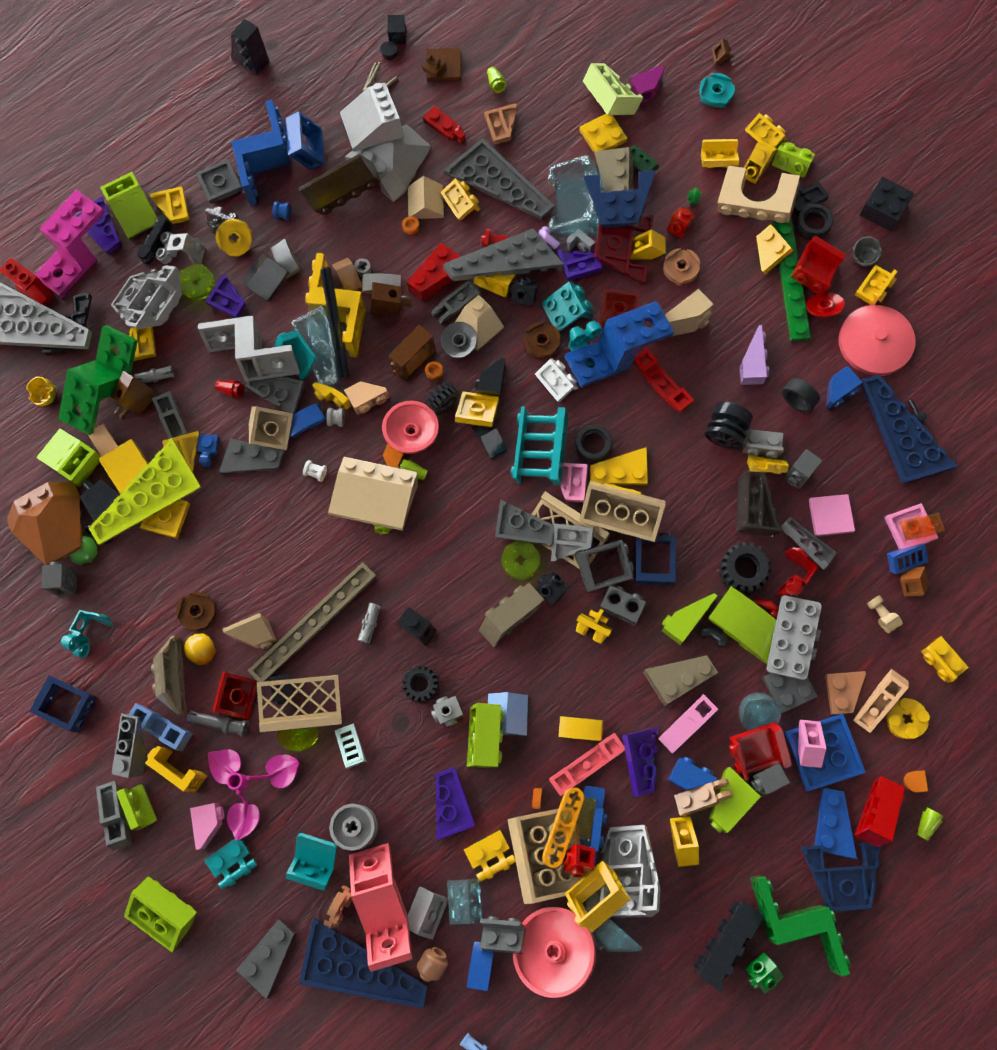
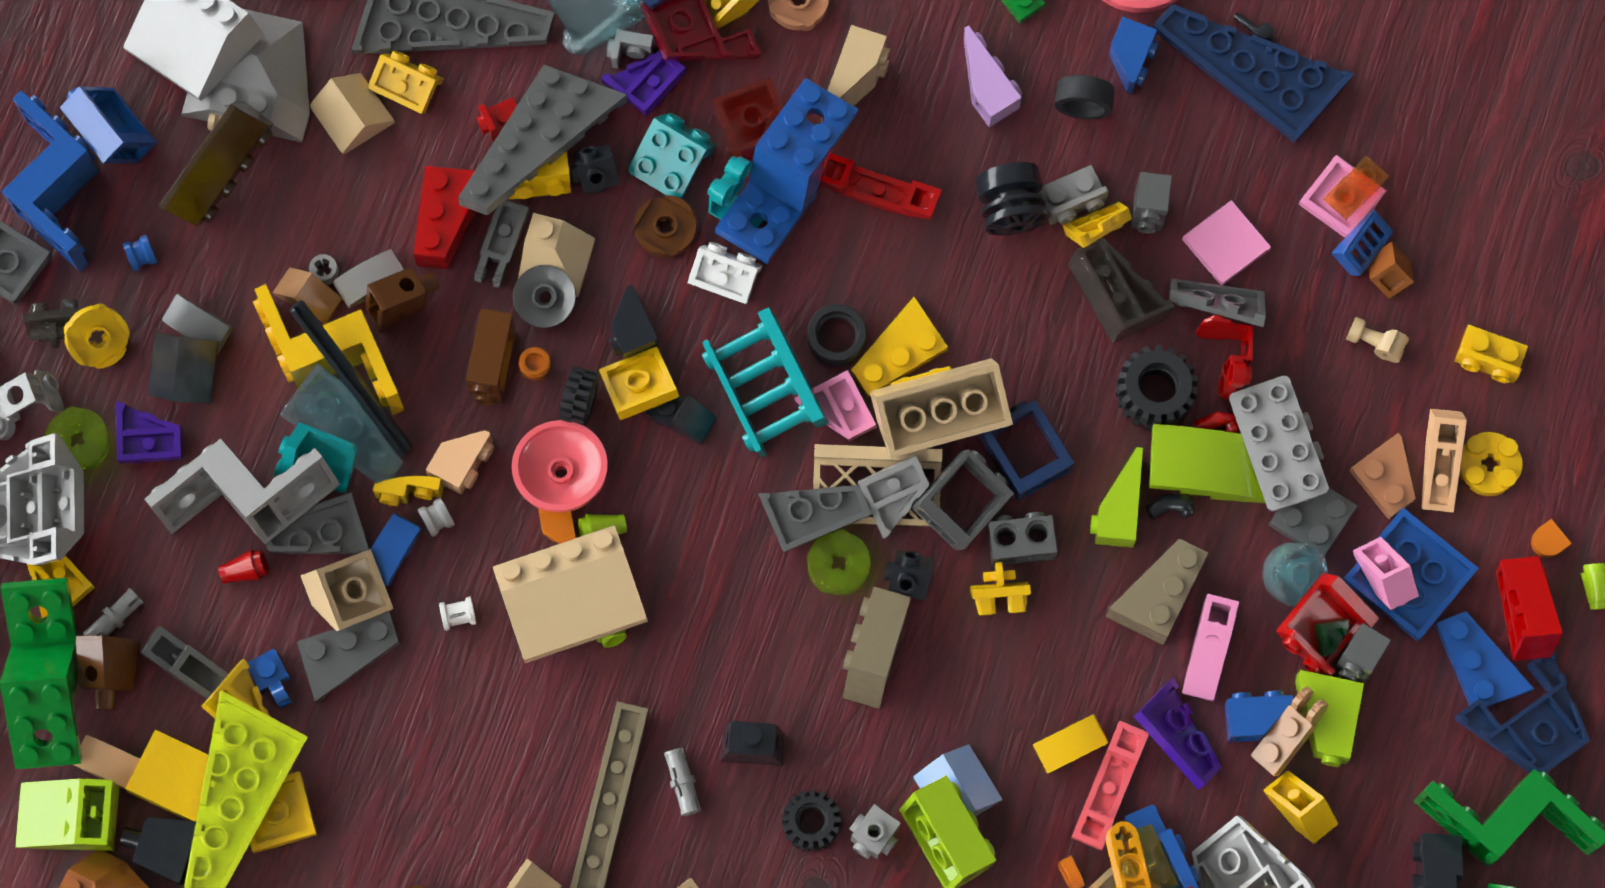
camera: 40 degrees left, 0 degrees up
(410, 225) = (354, 163): orange tile -> none
(549, 240) = (580, 69): lavender arm -> none
(758, 758) = (1329, 635): none -> dark green tile

